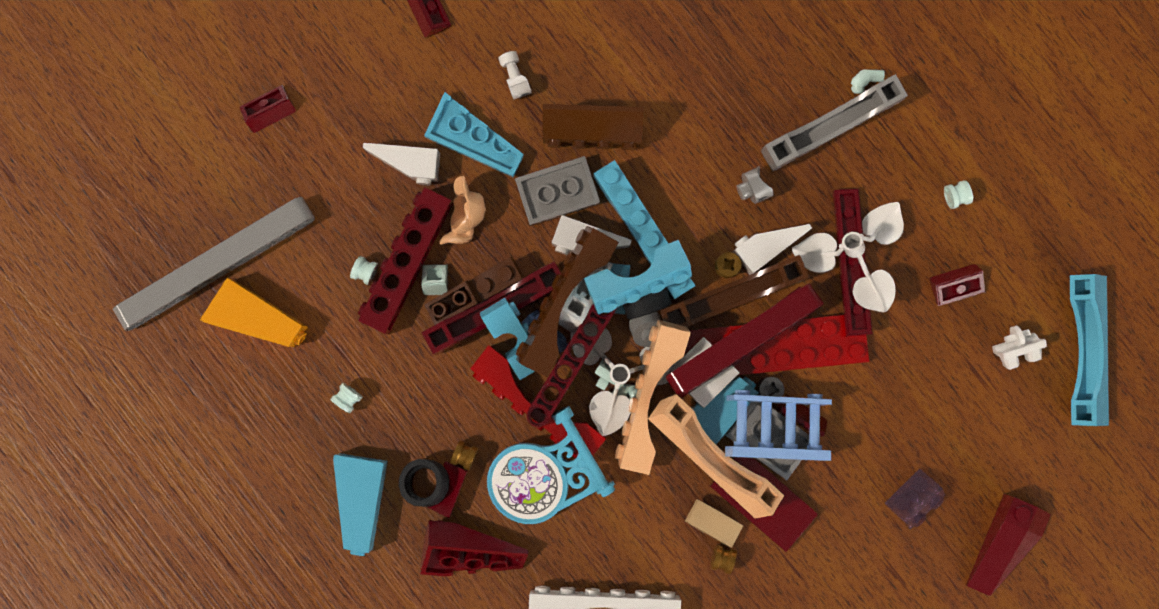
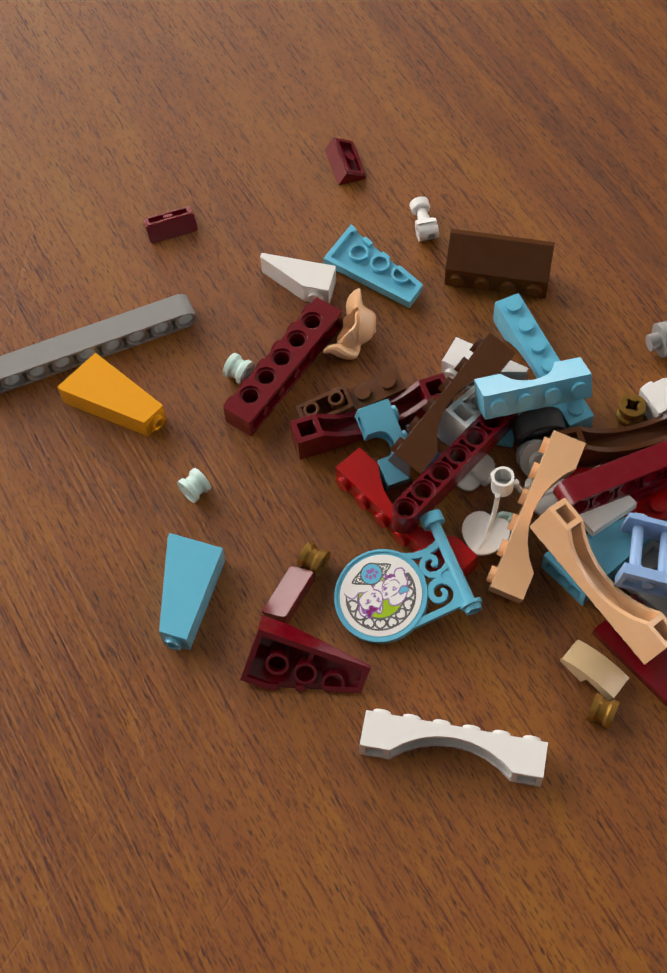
camera: 10 degrees right, 25 degrees down
(406, 480) = (253, 565): black tyre -> none
(434, 279) = (309, 388): light aqua slope -> none
(557, 191) = (443, 320): light grey plate -> none
(603, 371) = (485, 498): light aqua tile -> none

